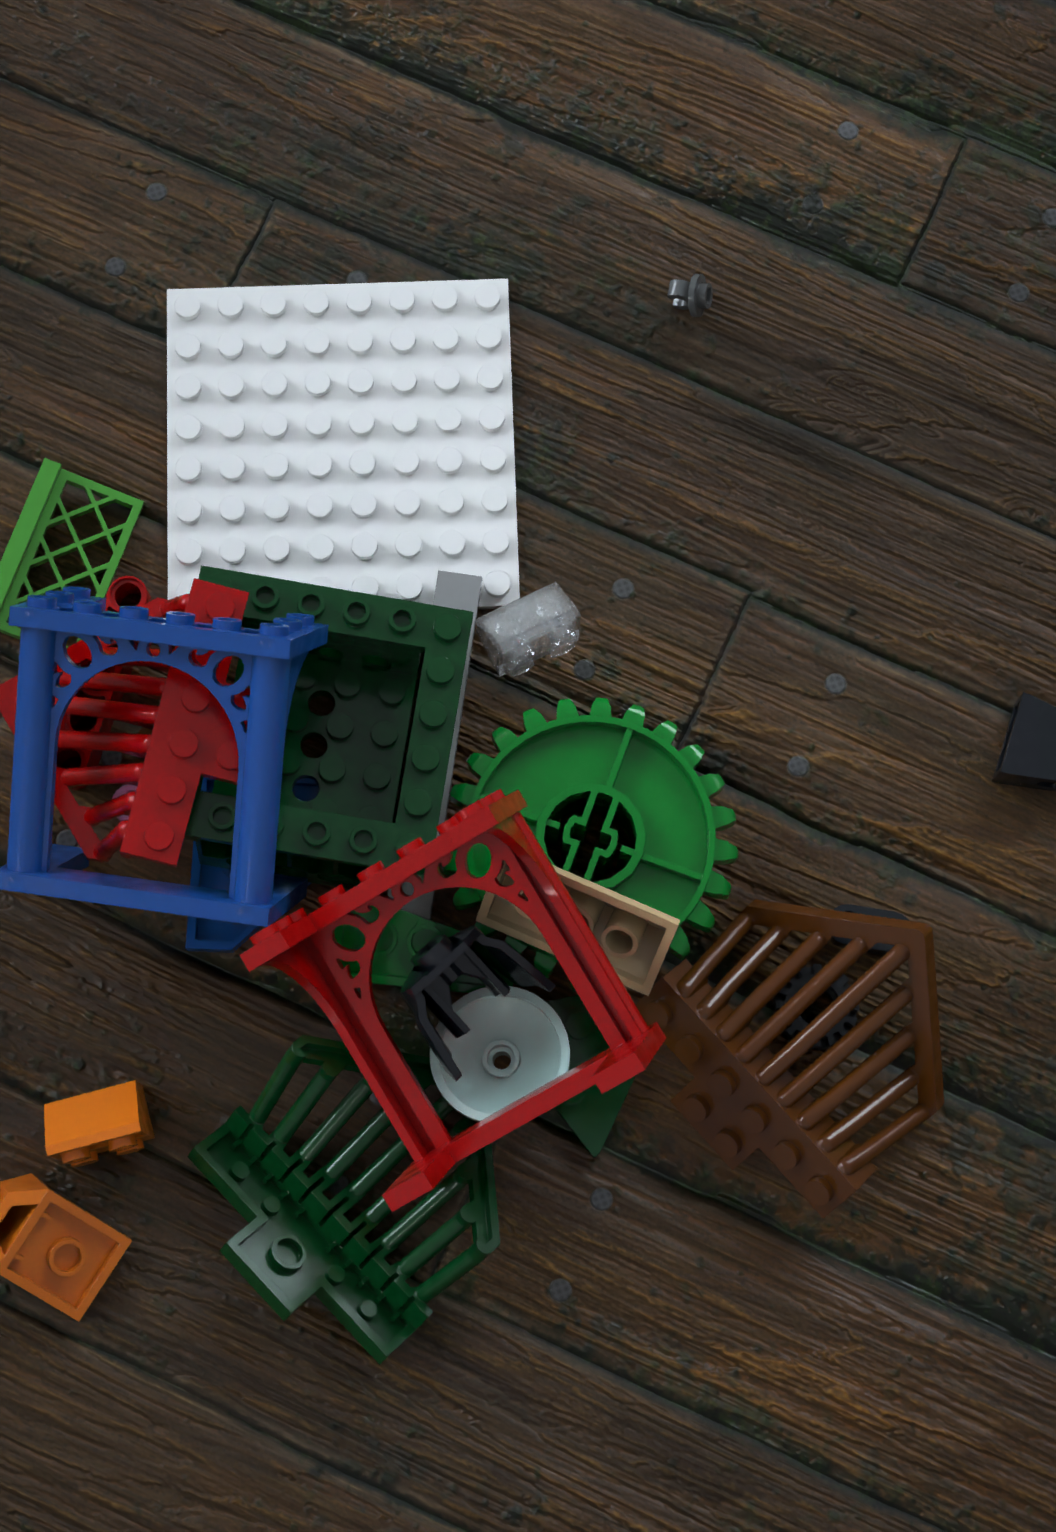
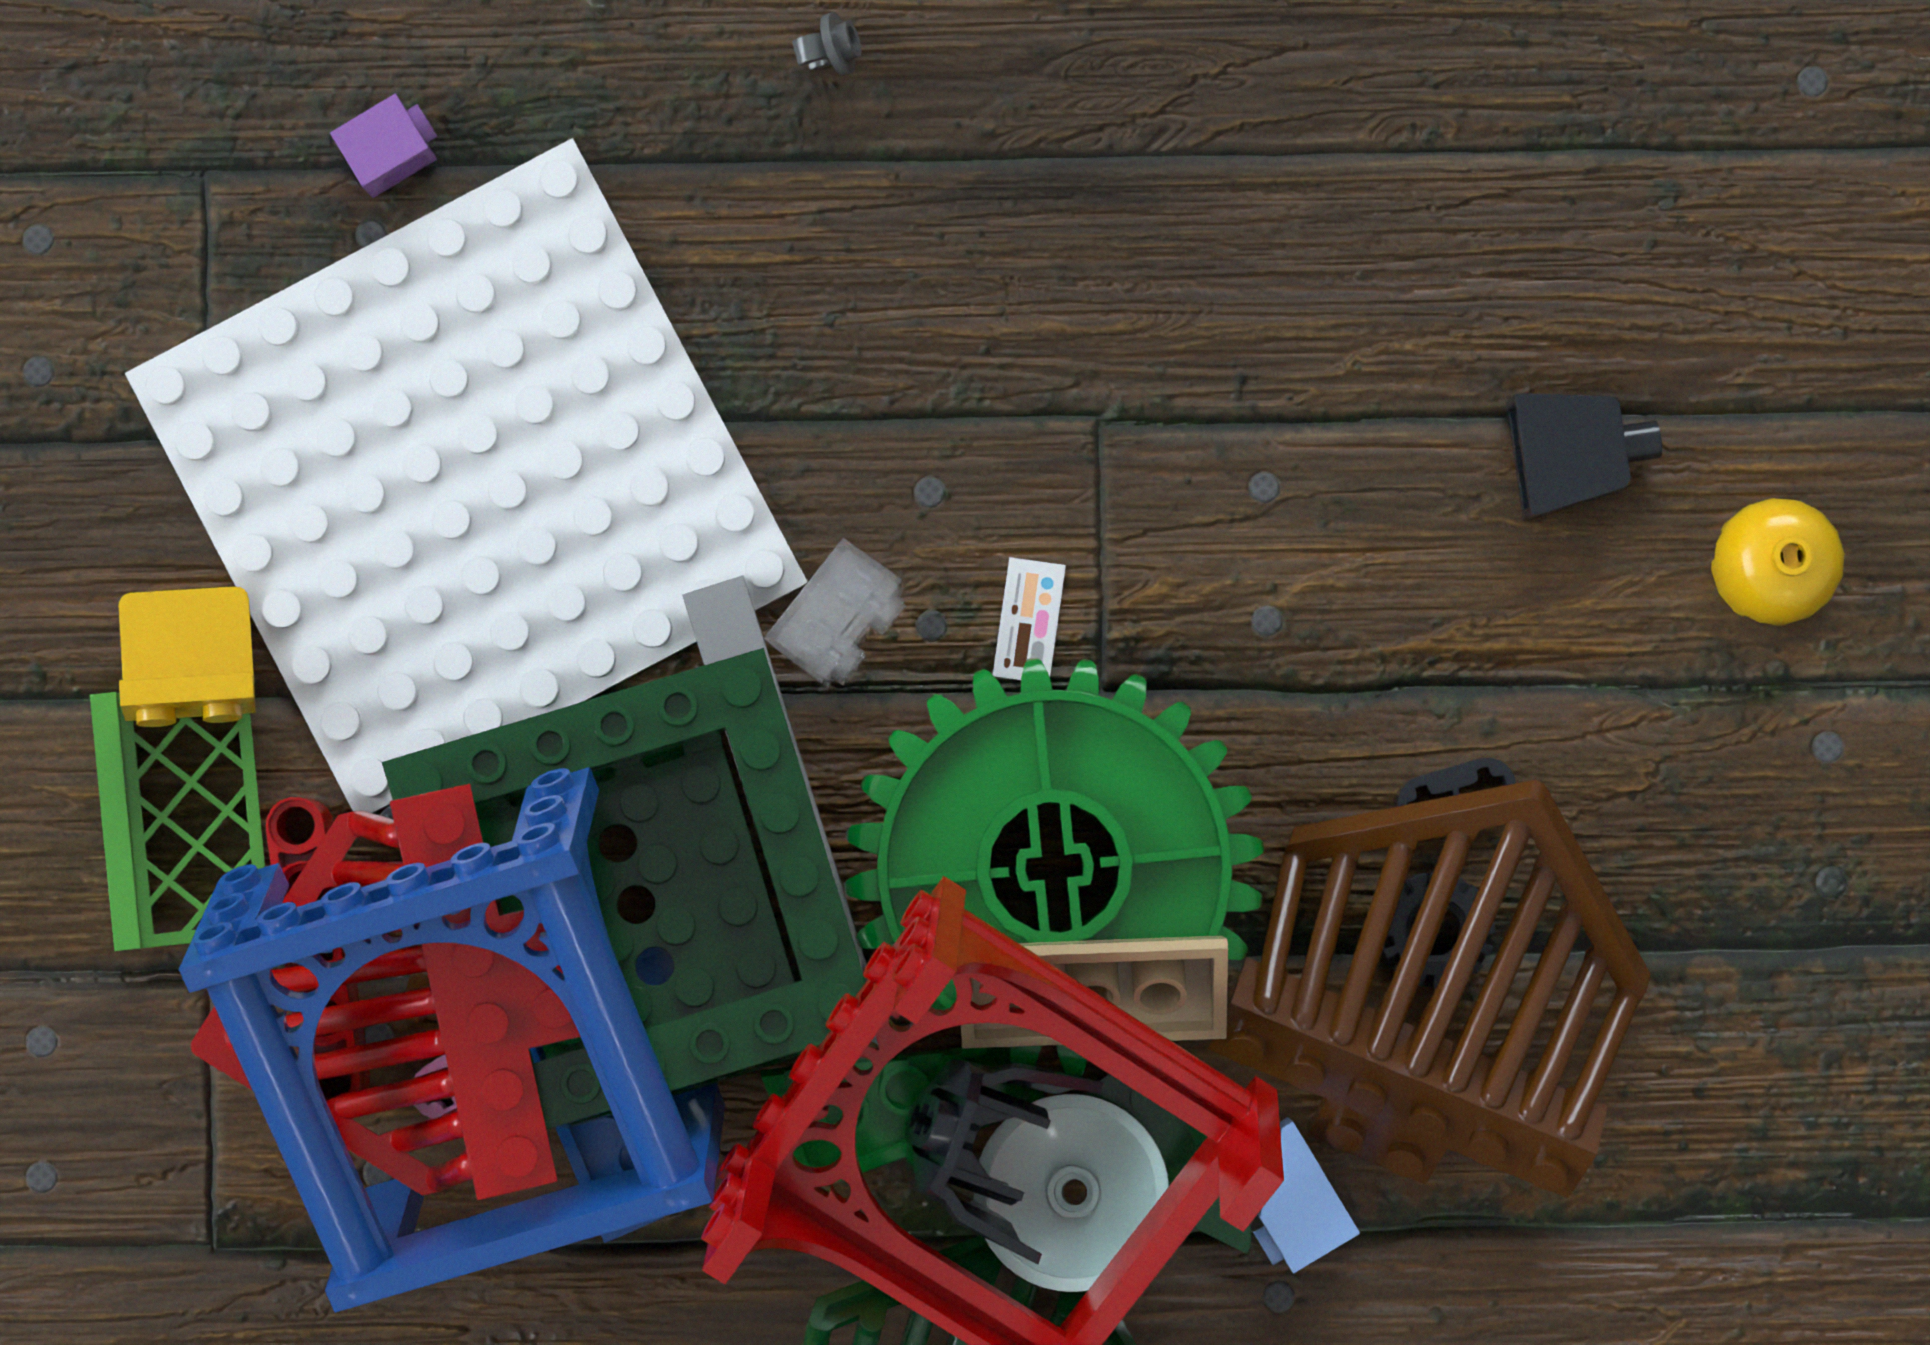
camera: 20 degrees left, 10 degrees up
(115, 465) = (186, 656): none -> yellow bracket
(393, 228) = (386, 144): none -> medium lavender brick
(643, 1141) = (1304, 1213): none -> light blue slope
(651, 688) = (1028, 616): none -> white sticker

